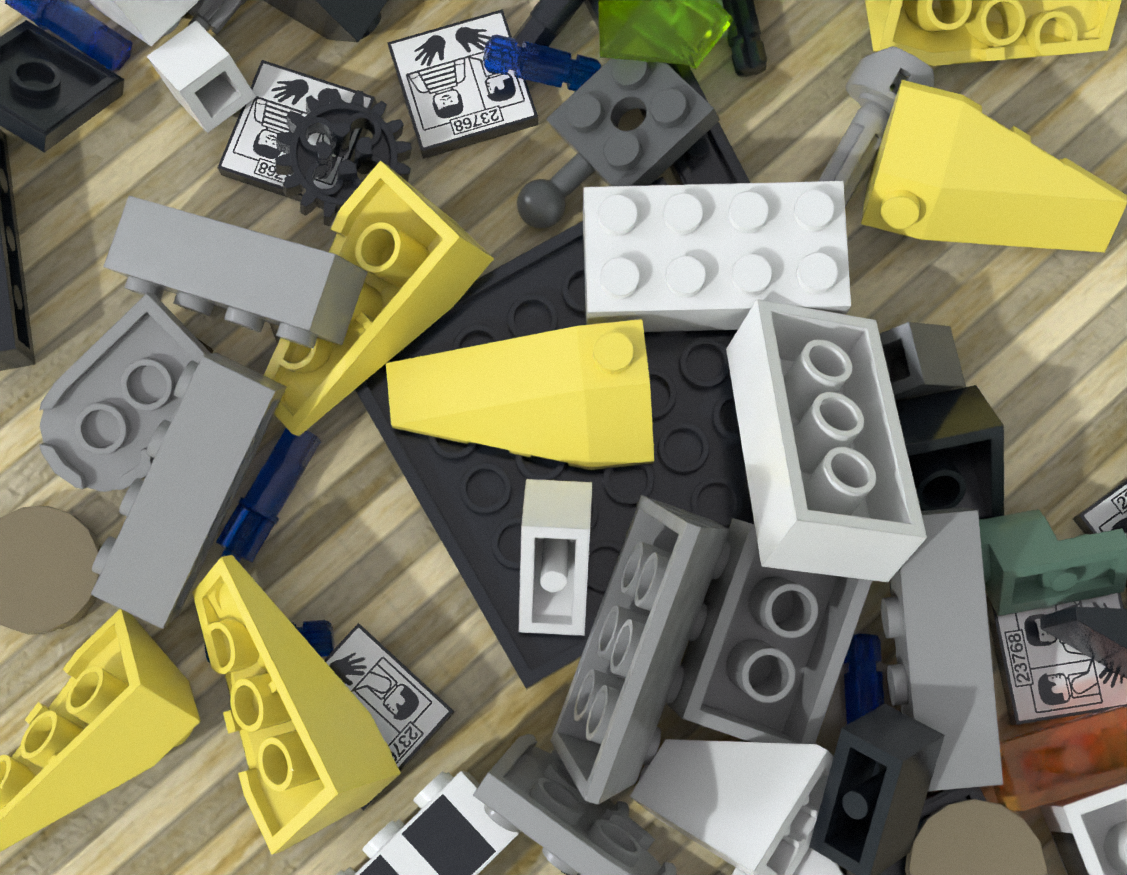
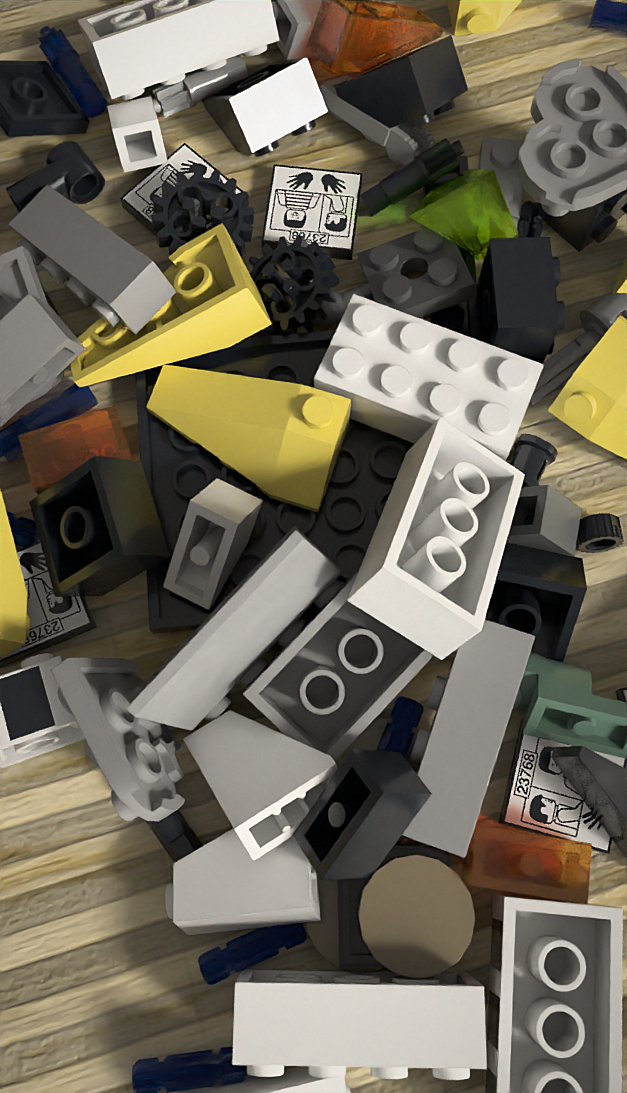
camera: 25 degrees right, 5 degrees down
(134, 165) = (66, 171): none -> black piece
(339, 519) = (66, 445): none -> clear orange brick
(413, 598) = (98, 527): none -> black brick
(495, 163) = (302, 264): none -> black gear
(538, 62) = (367, 213): clear blue axle -> none
(774, 106) = (520, 297): none -> black brick
(869, 292) = (532, 457): none -> black bush
(980, 344) = (599, 533): none -> black axle

